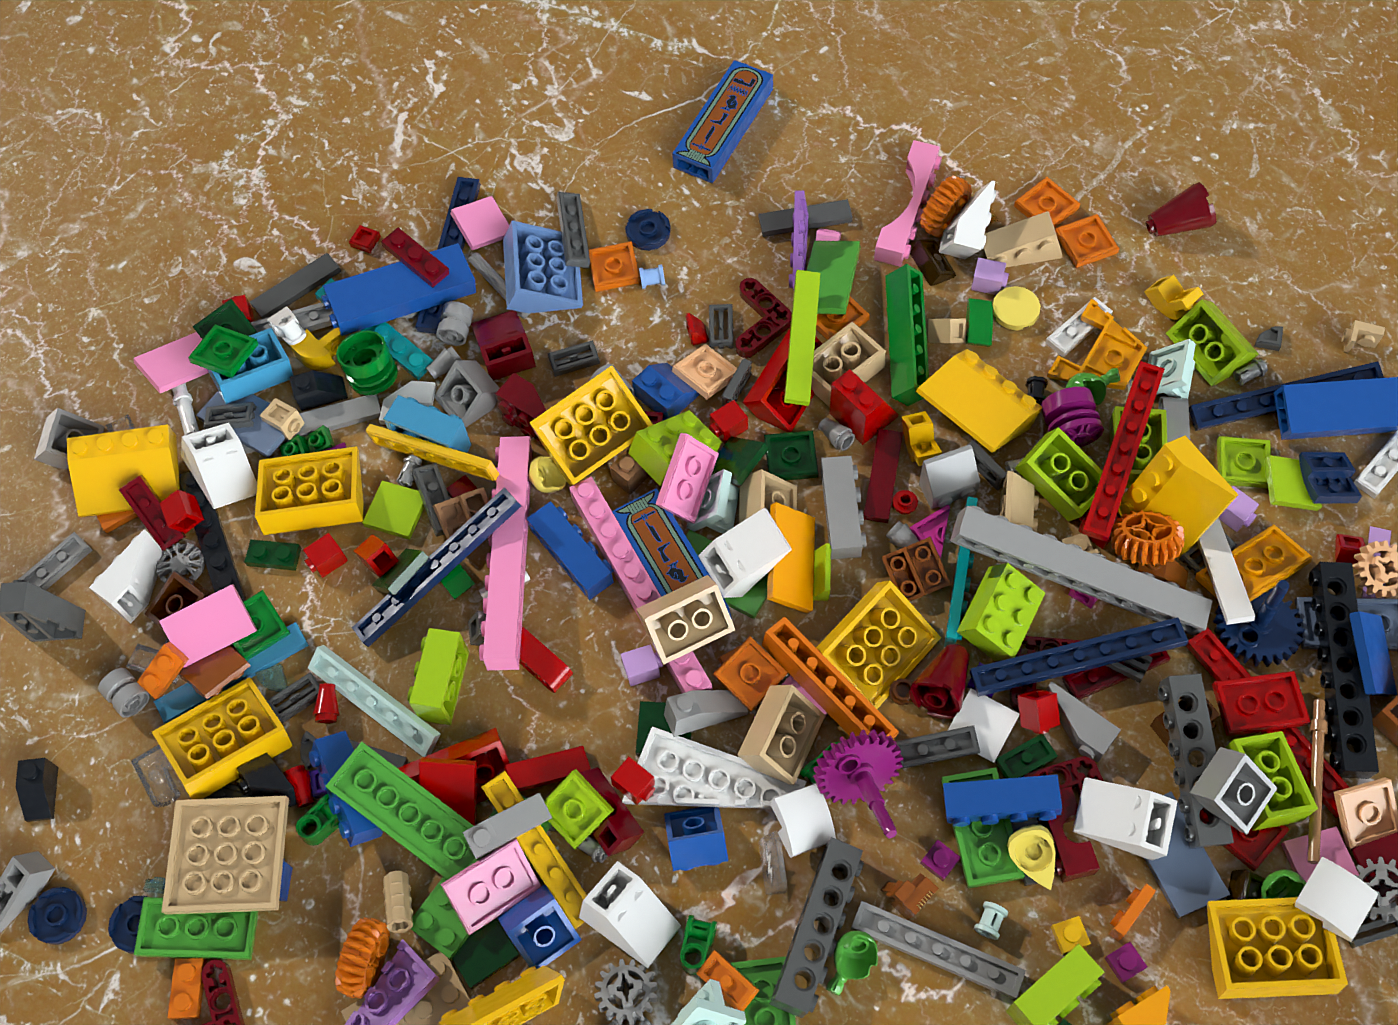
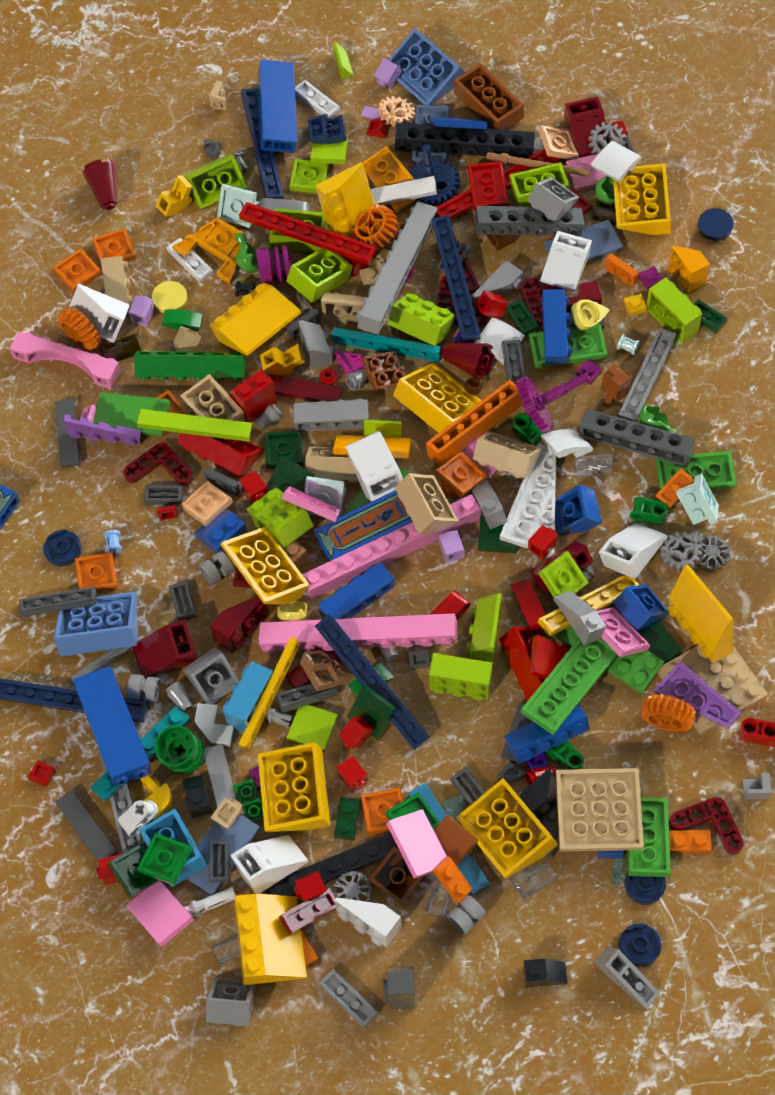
camera: 90 degrees left, 0 degrees up
(284, 591) = (374, 808): none -> orange tile
(326, 705) = (479, 761): red cone -> none
(374, 701) = (474, 728): light aqua plate -> none
(397, 902) = (627, 696): tan axle -> none
(415, 257) = (87, 707): dark red plate -> none
(480, 222) = (42, 672): bright pink tile -> none
(510, 710) = (484, 628): none -> lime slope

